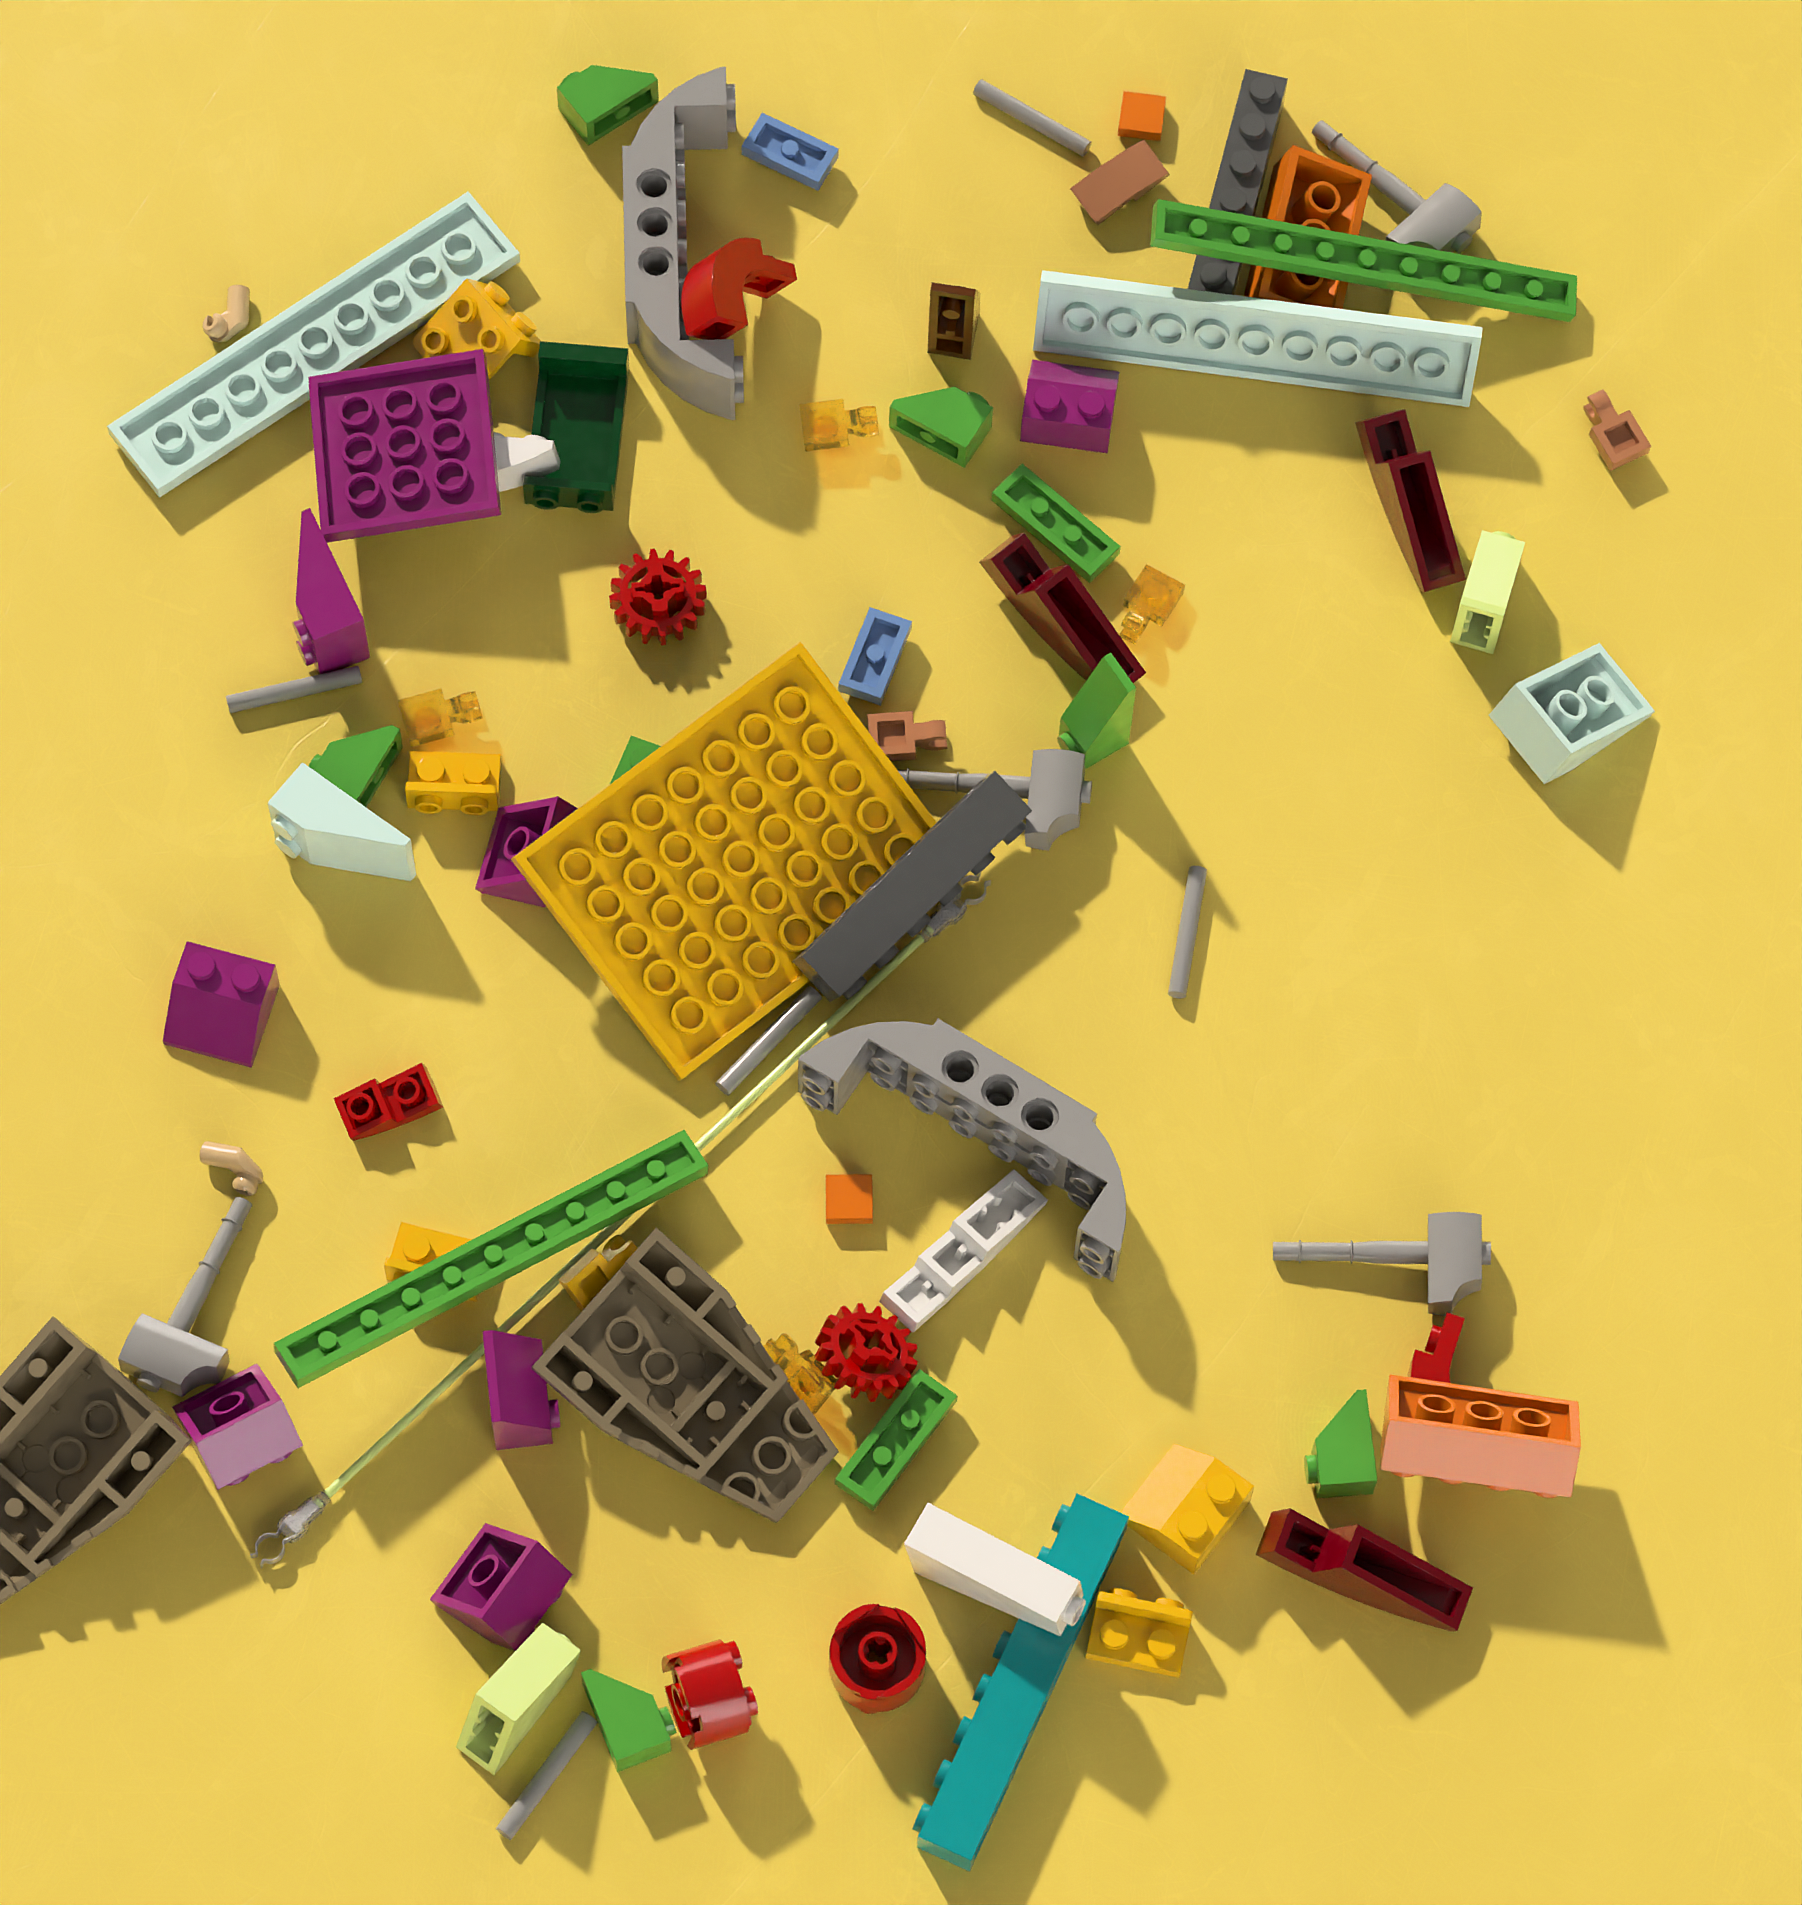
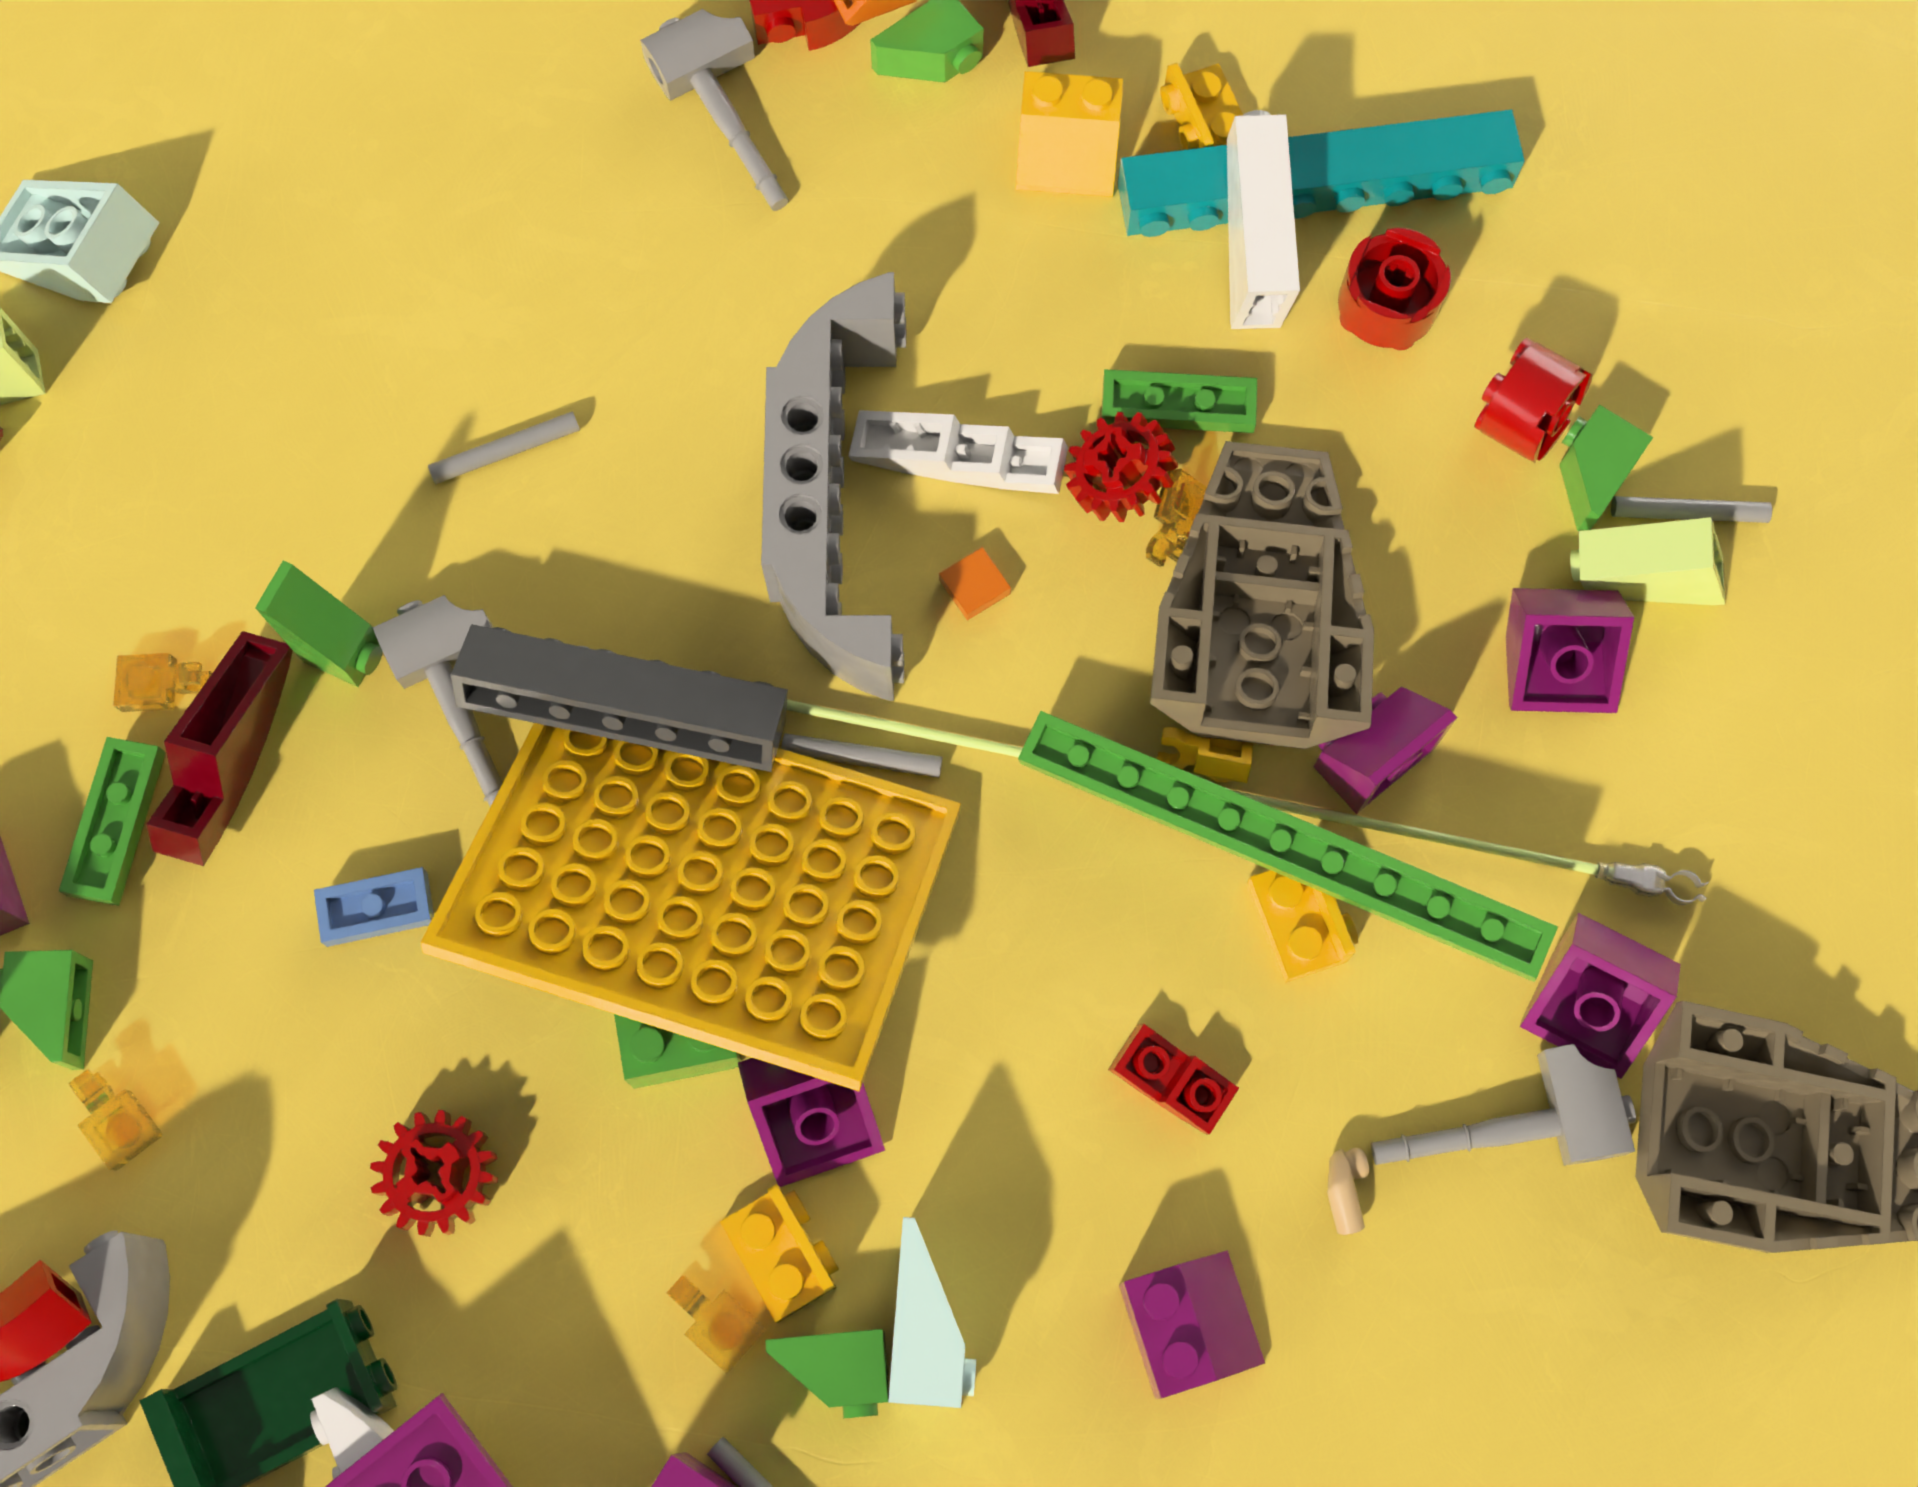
camera: 120 degrees left, 5 degrees up
(900, 735) = (452, 824): nougat plate -> none

